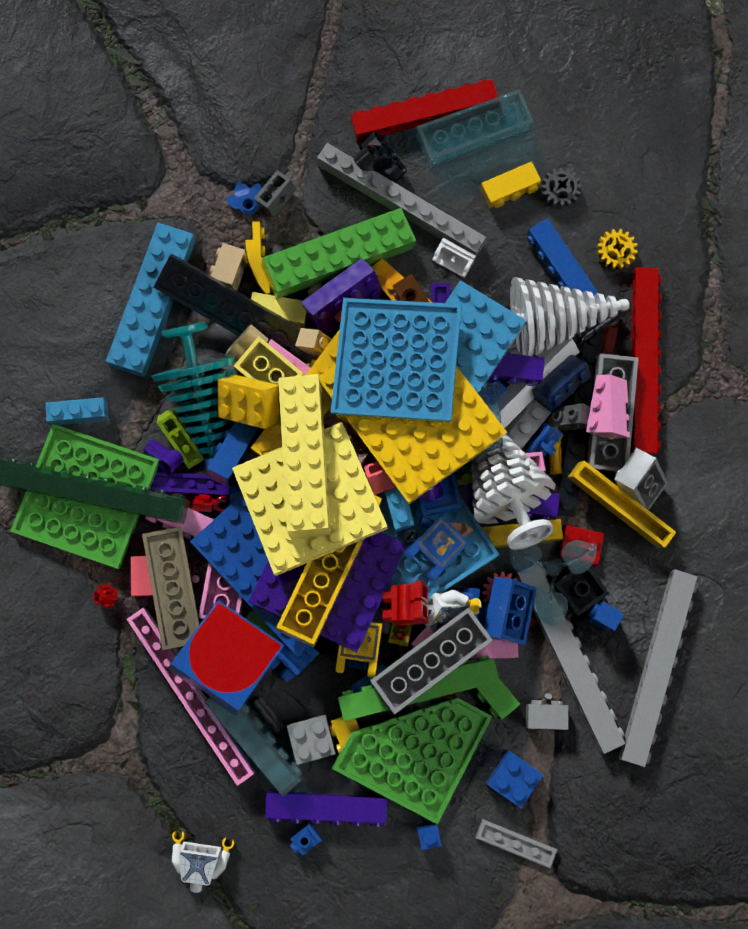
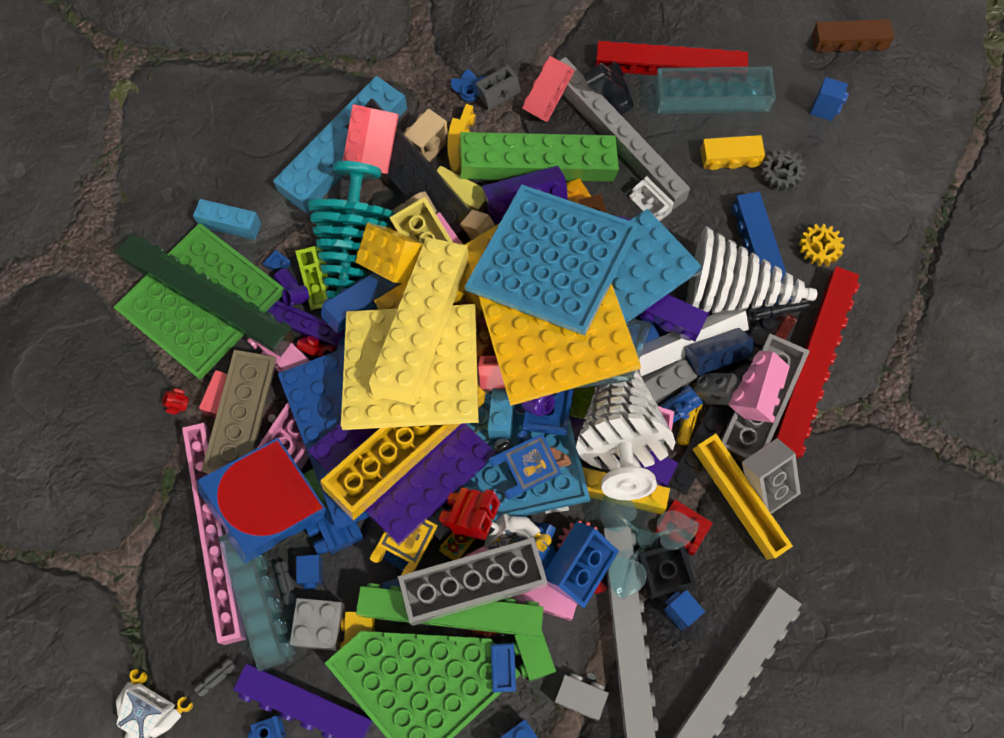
camera: 25 degrees right, 10 degrees down
(138, 434) = (276, 261): none -> blue tile
(183, 293) = (371, 137): none -> coral slope
(243, 812) = (215, 677): none -> dark grey axle
(285, 698) = (309, 571): none -> blue brick
(323, 181) = (548, 88): none -> coral brick
(476, 717) = (503, 667): none -> blue tile
(581, 27) = (852, 35): none -> reddish brown brick
(581, 103) = (829, 99): none -> blue brick

